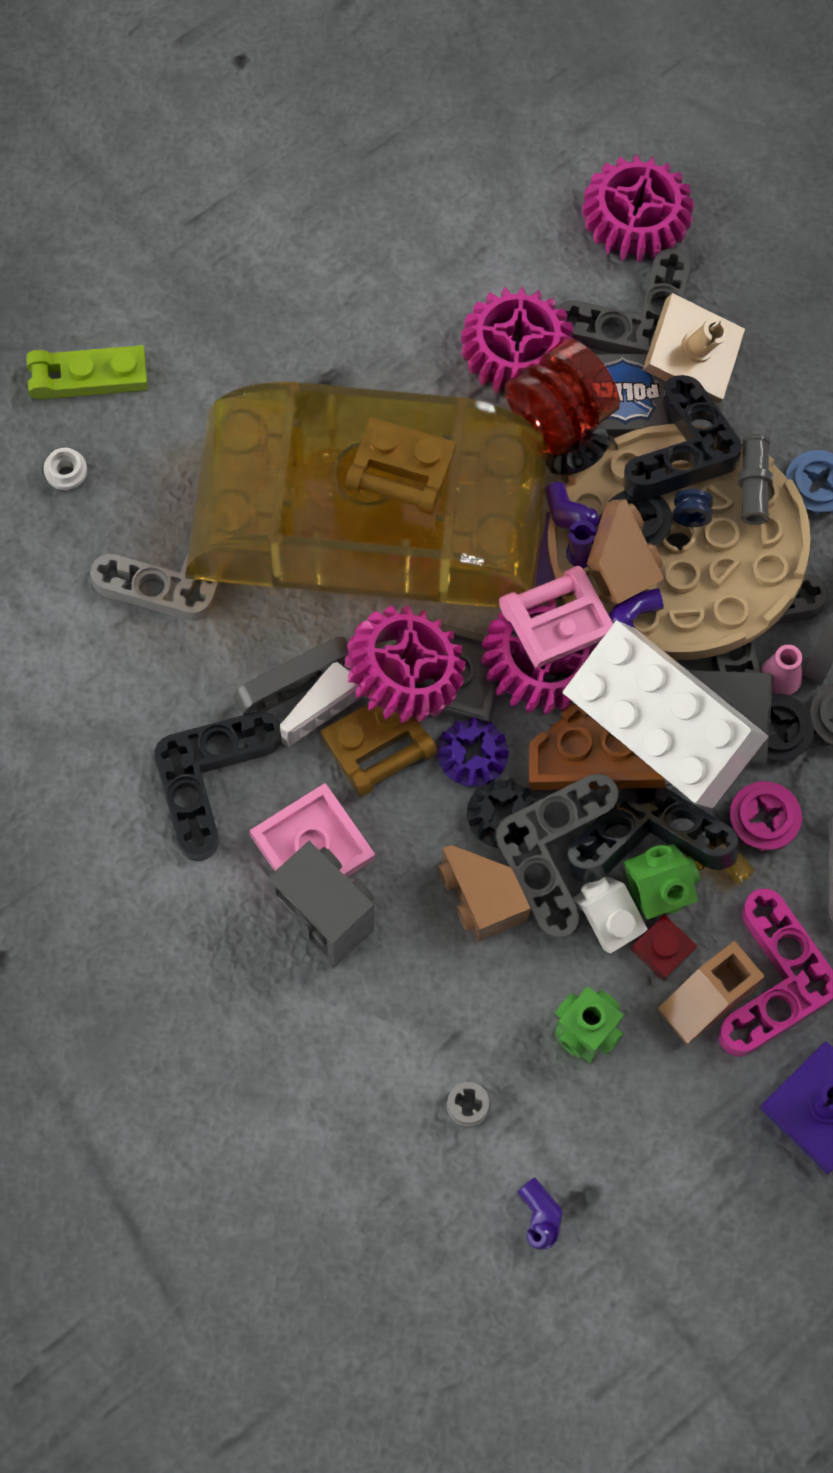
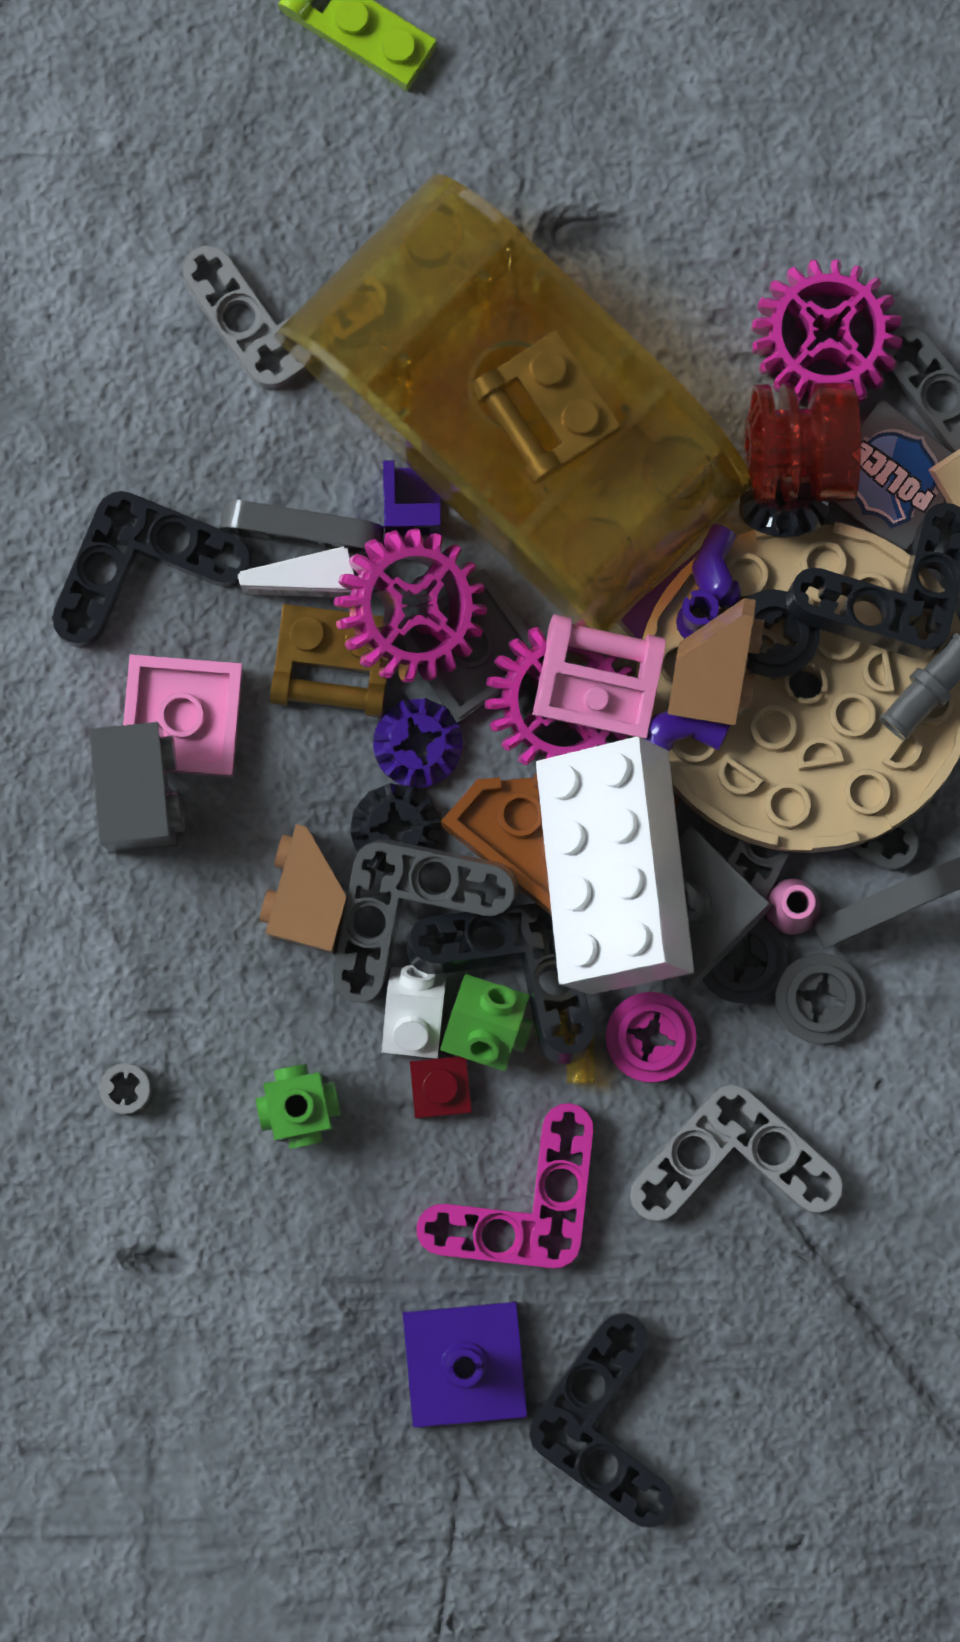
camera: 40 degrees right, 15 degrees up
(65, 458) = (246, 104): white plate -> none
(345, 611) = (409, 502): none -> dark purple panel
(546, 1215) = (111, 1252): dark purple arm -> none
(693, 508) = (838, 667): dark blue bush -> none
(711, 993) = (438, 1171): medium nougat slope -> none

